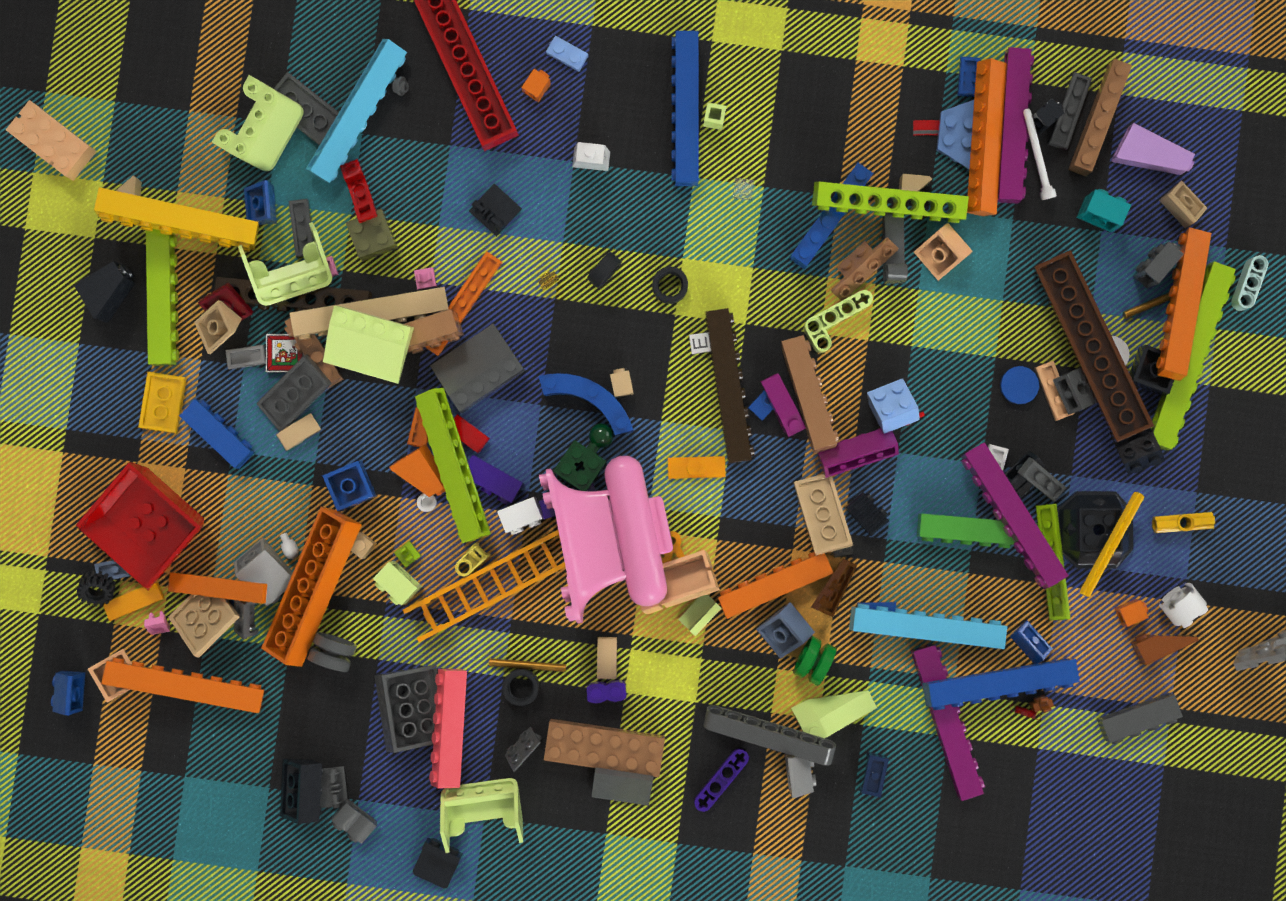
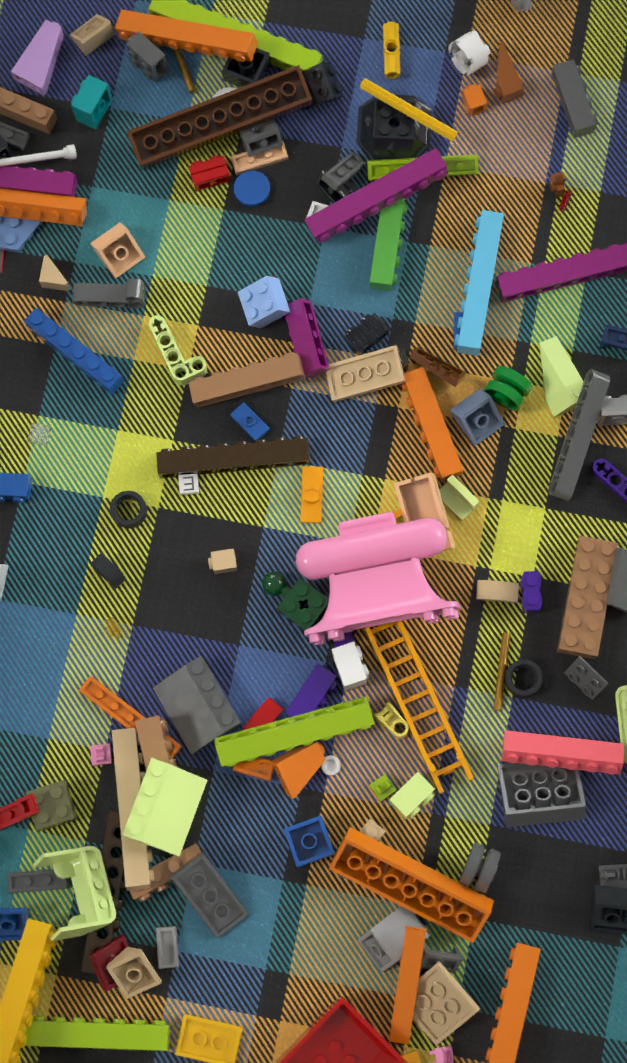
camera: 85 degrees left, 10 degrees down
(217, 433) = (246, 981): blue brick -> none
(281, 353) = (167, 907): tile -> none
(289, 547) = (369, 911): white cylinder -> none
(298, 432) = (250, 894): tan slope -> none
(495, 209) = (37, 679): black hinge -> none
(593, 393) = (230, 591): blue brick -> none
(783, 405) = (256, 405): magenta slope -> none
(861, 266) = (124, 325): medium nougat bracket -> none
(956, 203) = (49, 351): lime brick -> none
(1001, 682) = (536, 221): blue brick -> none
(1031, 642) = (499, 191): blue slope -> none
(1033, 339) = (209, 172): none -> red brick

